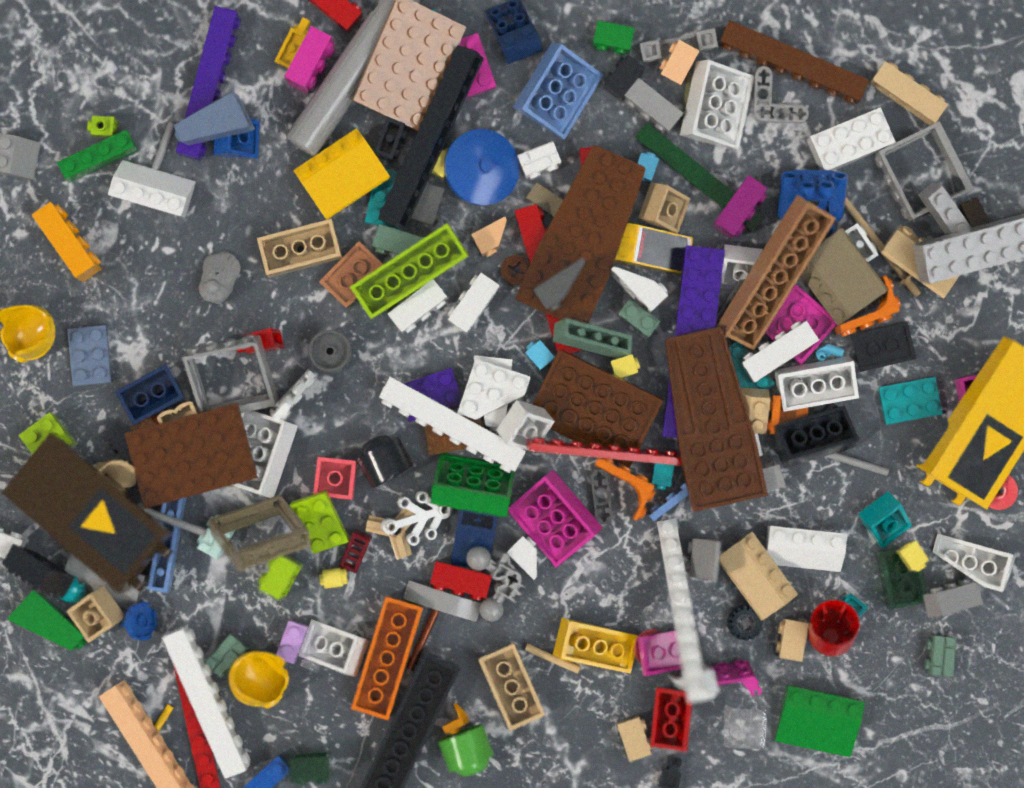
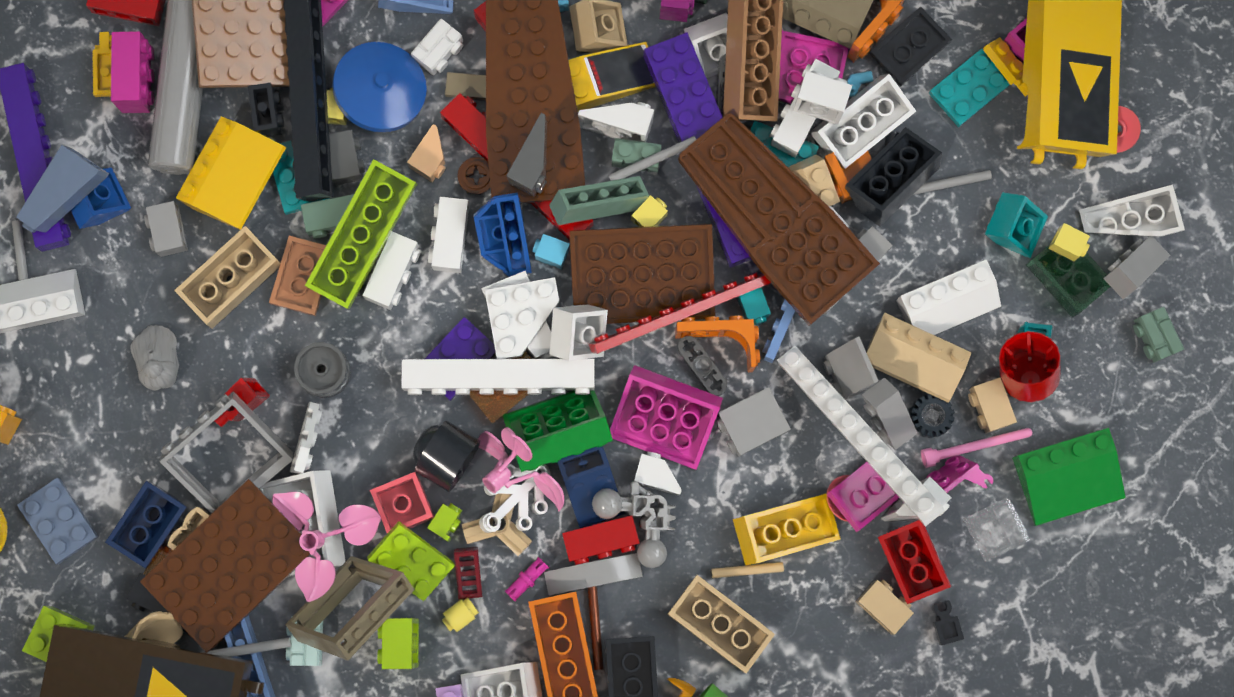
camera: 30 degrees left, 5 degrees down
(274, 188) = (166, 229): none -> light grey brick
(296, 479) = (318, 575): none -> bright pink plant
(359, 506) = (445, 521): none -> lime brick
(393, 578) = (526, 579): none -> dark pink pin
(414, 498) = (501, 474): none -> bright pink plant
(510, 326) = (503, 234): none -> blue wedge
(614, 557) = (752, 422): none -> light grey panel
(647, 330) = (651, 160): none -> light grey bar
(712, 606) = (889, 414): none -> light grey brick
(729, 652) = (932, 456): none -> bright pink piece
(794, 353) = (822, 97): none -> white brick
(946, 396) = (1006, 63): none -> yellow hinge

